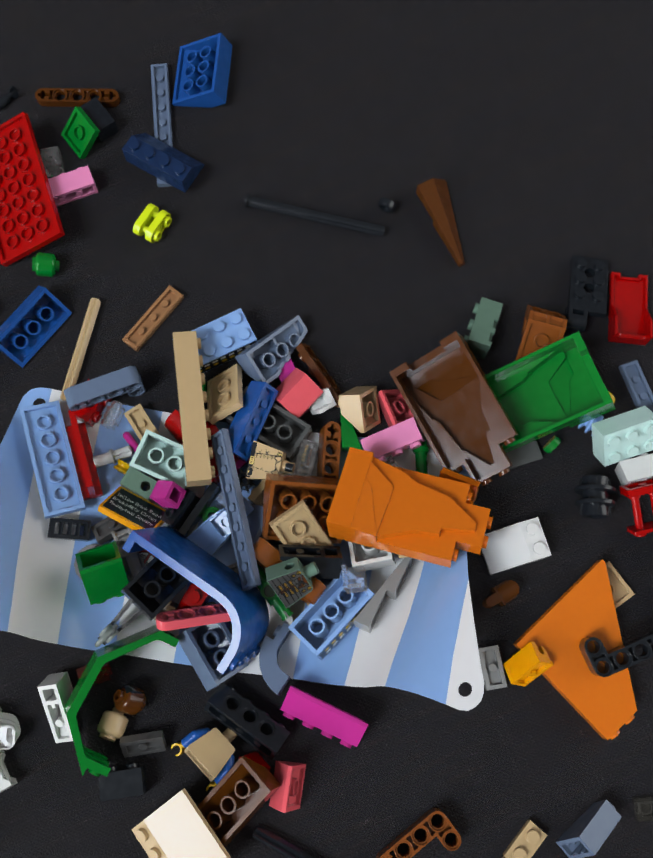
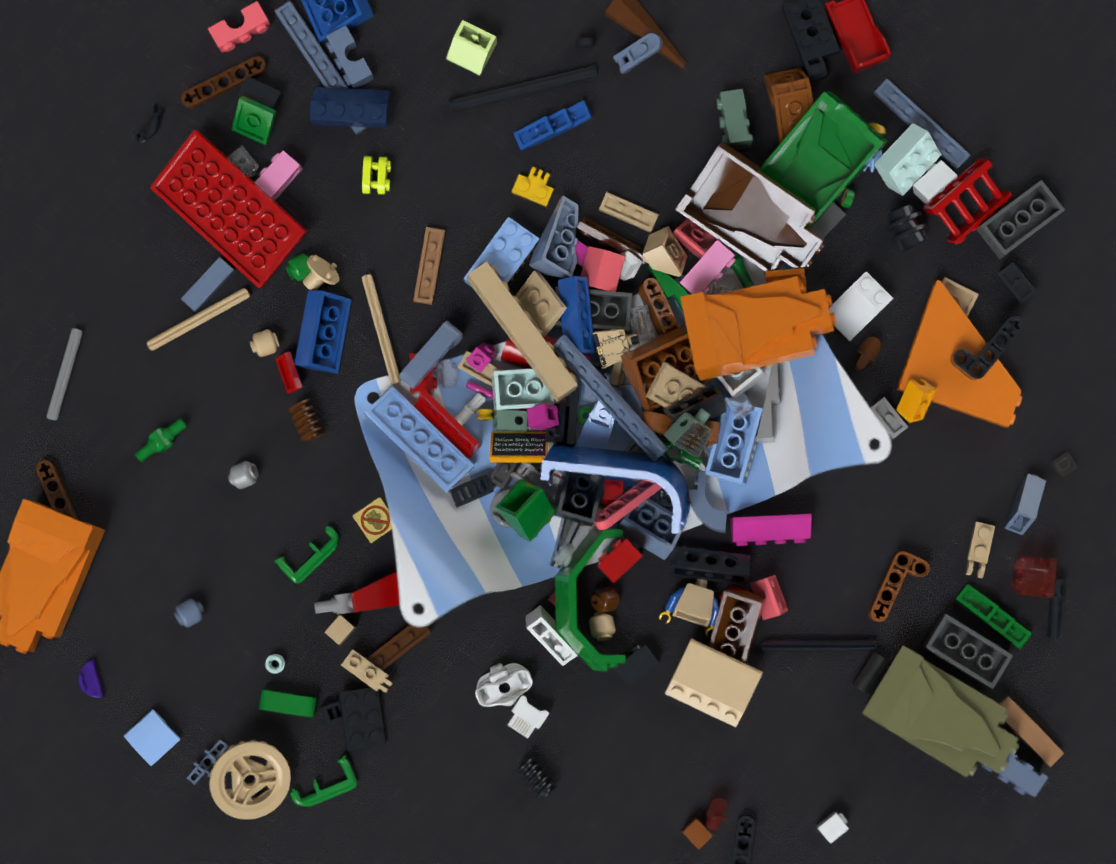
camera: 20 degrees left, 10 degrees up
(57, 275) = (320, 272): none -> tan piece
(128, 64) = (254, 23): none -> coral arch
(143, 743) = (635, 627): flat silver plate -> none
(150, 414) = (482, 357): none -> dark pink bracket
(160, 667) = (619, 559): none -> red brick
(186, 112) = (356, 72): none -> sand blue arch
(279, 299) = (534, 187): none -> yellow hinge
(290, 163) = (471, 47): none -> yellowish green slope
(323, 257) = (553, 125): none -> blue slope
(349, 359) = (628, 212): none -> tan tile
(428, 232) = (638, 52): none -> sand blue plate

